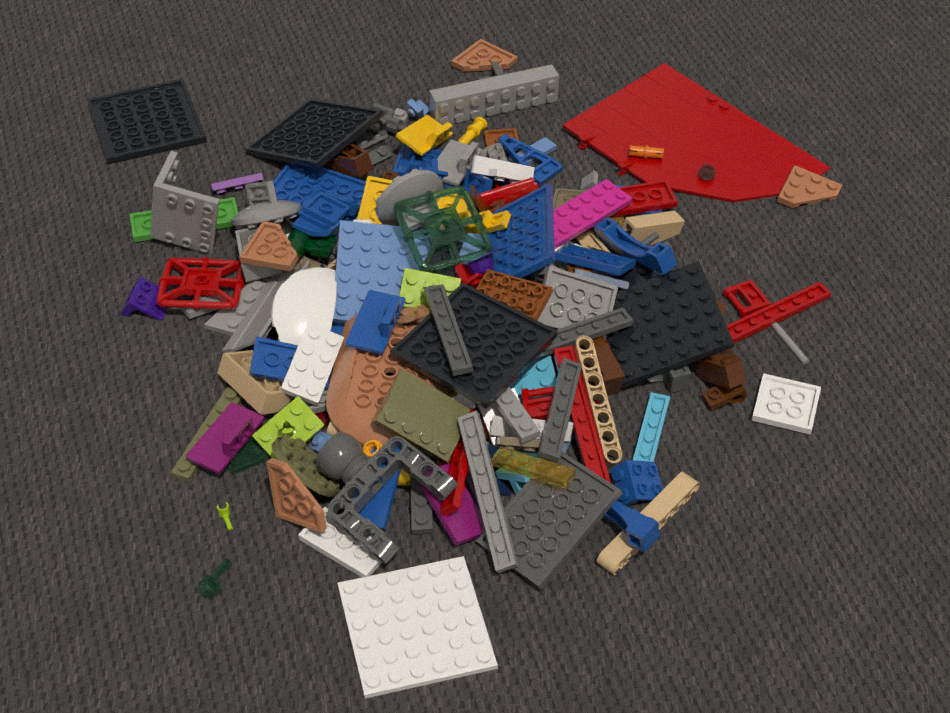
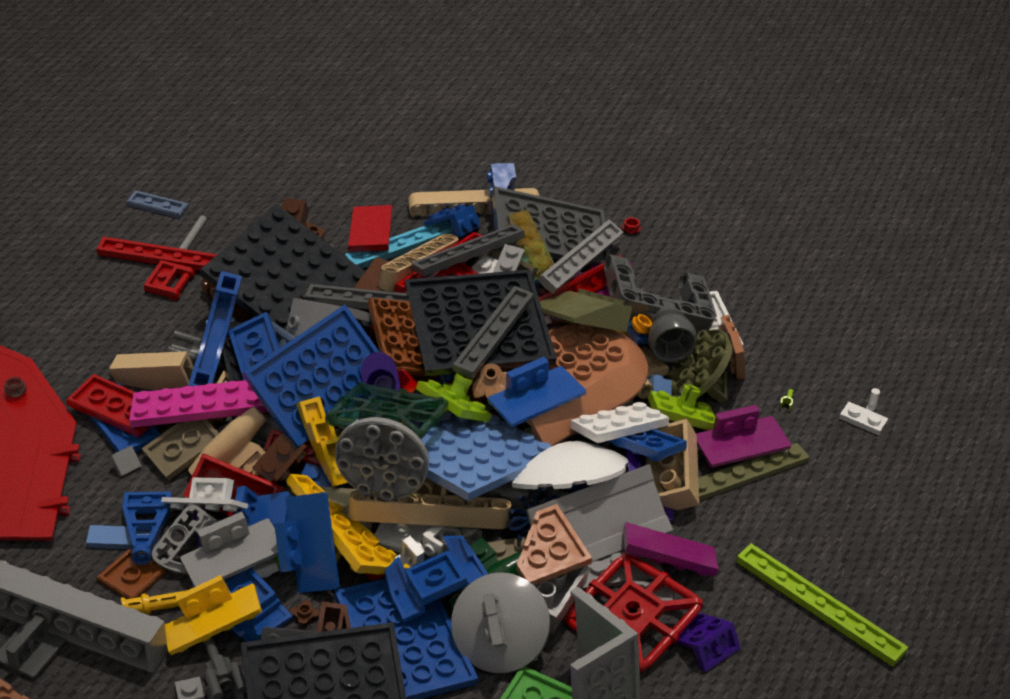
camera: 140 degrees left, 5 degrees down
(86, 368) = (822, 605): none -> lime plate
(152, 542) = (865, 417): none -> white plate
(208, 326) = (670, 549): none -> magenta tile
(209, 585) = (842, 356): clear green plate -> none
(416, 627) = (711, 246): white plate -> none
(417, 109) = (166, 678): medium blue bracket -> none
(508, 597) = (631, 225): none -> red plate
(646, 151) = (31, 443): orange pin -> none
(684, 432) = (370, 228): none -> red tile
(786, 404) = (258, 198): white plate -> none
(850, 349) = (157, 204): none -> sand blue tile

